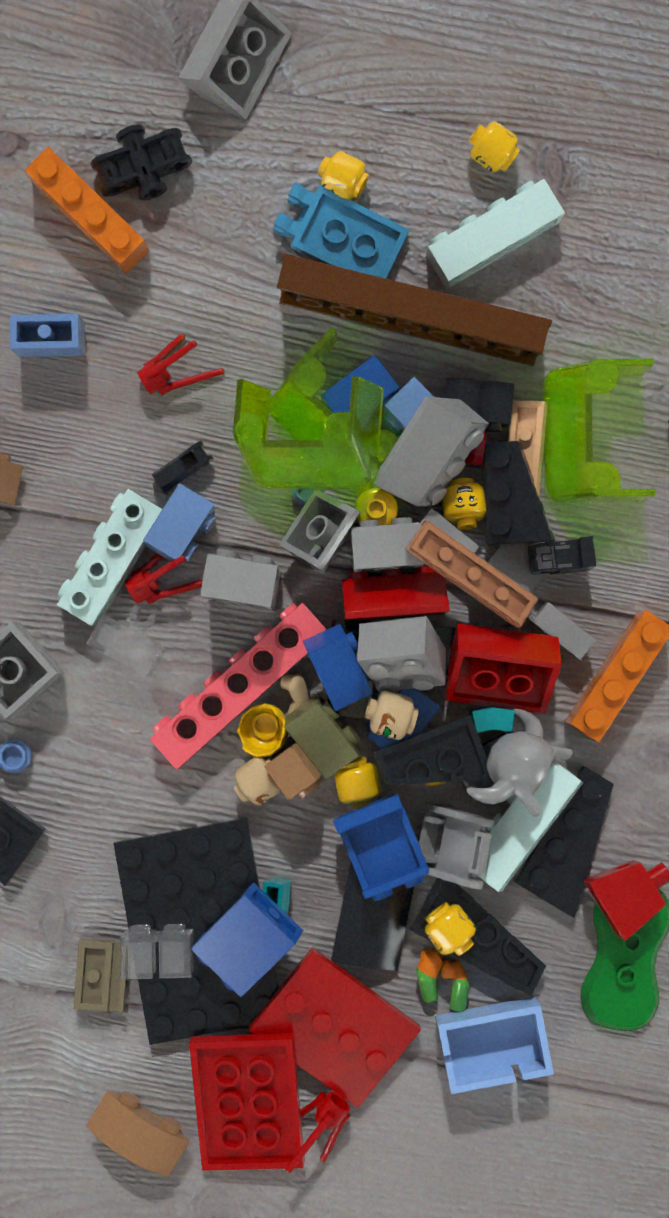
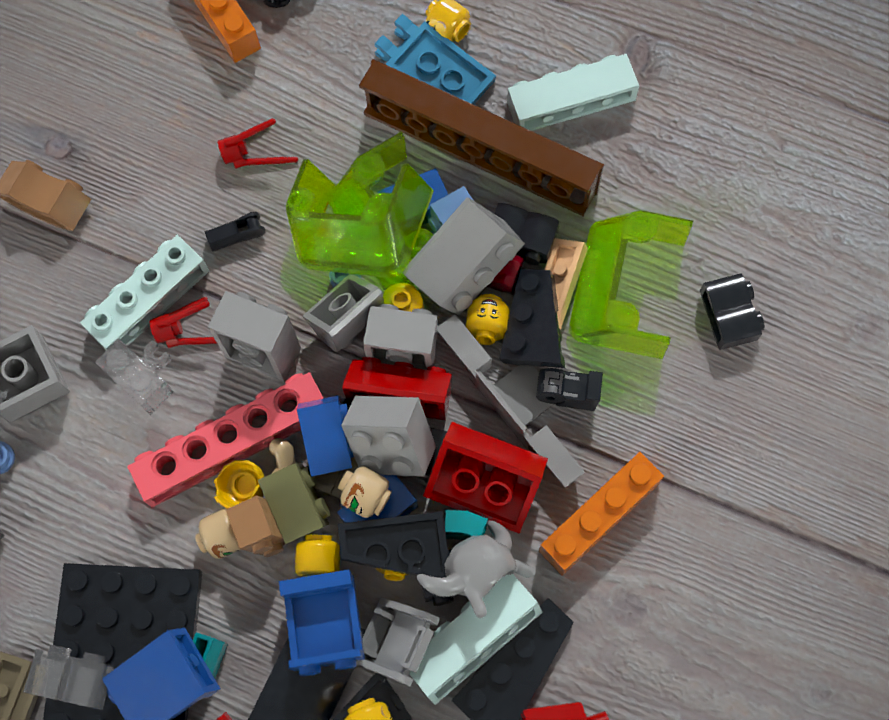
camera: 15 degrees right, 15 degrees down
(47, 335) = (147, 92): medium blue brick -> none
(180, 525) = (217, 272): medium blue brick -> none
(471, 574) = (475, 374): nougat tile -> none
(493, 147) = (588, 22): yellow head -> none

